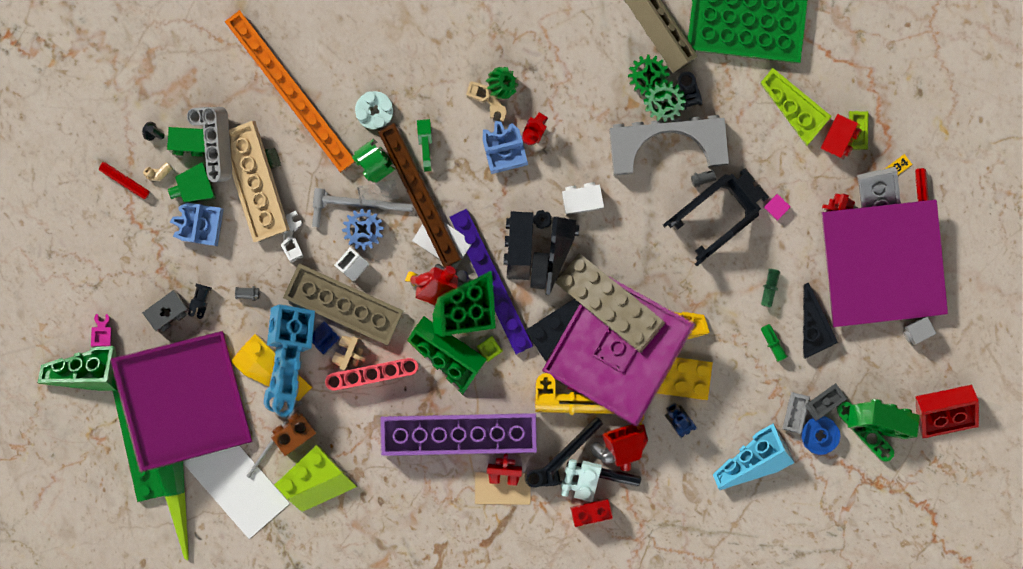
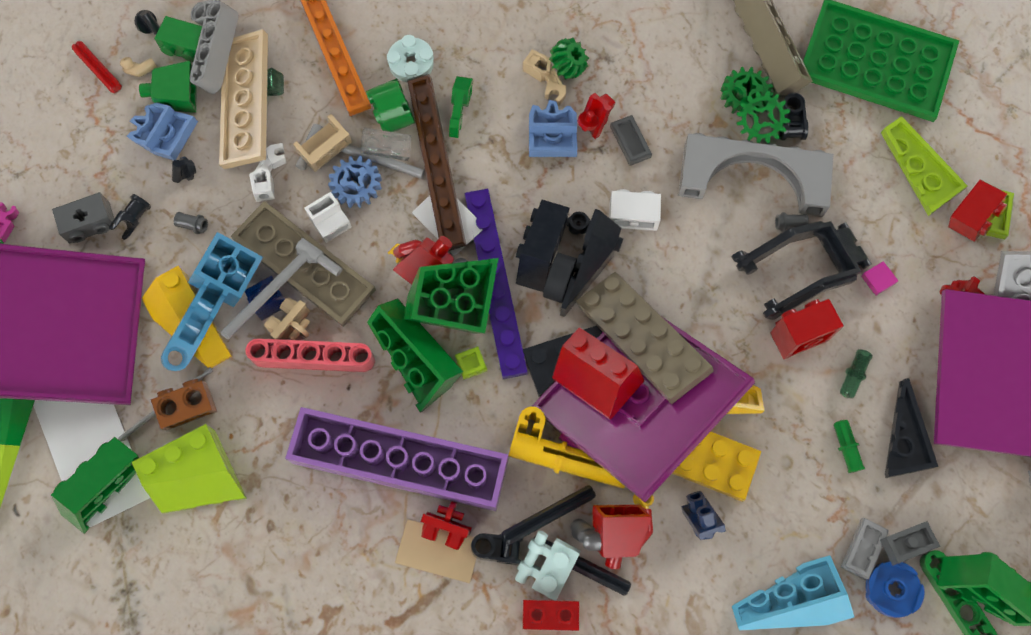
camera: 15 degrees right, 15 degrees down
(227, 249) = (183, 169): none -> black plate
(251, 504) = (94, 482): none -> green wedge
(330, 206) = (324, 144): none -> tan panel
(346, 299) = (306, 253): none -> light grey bar
(566, 138) = (630, 140): none -> dark grey tile
(583, 340) = (596, 373): none -> red slope
(727, 266) = (806, 328): none -> red brick

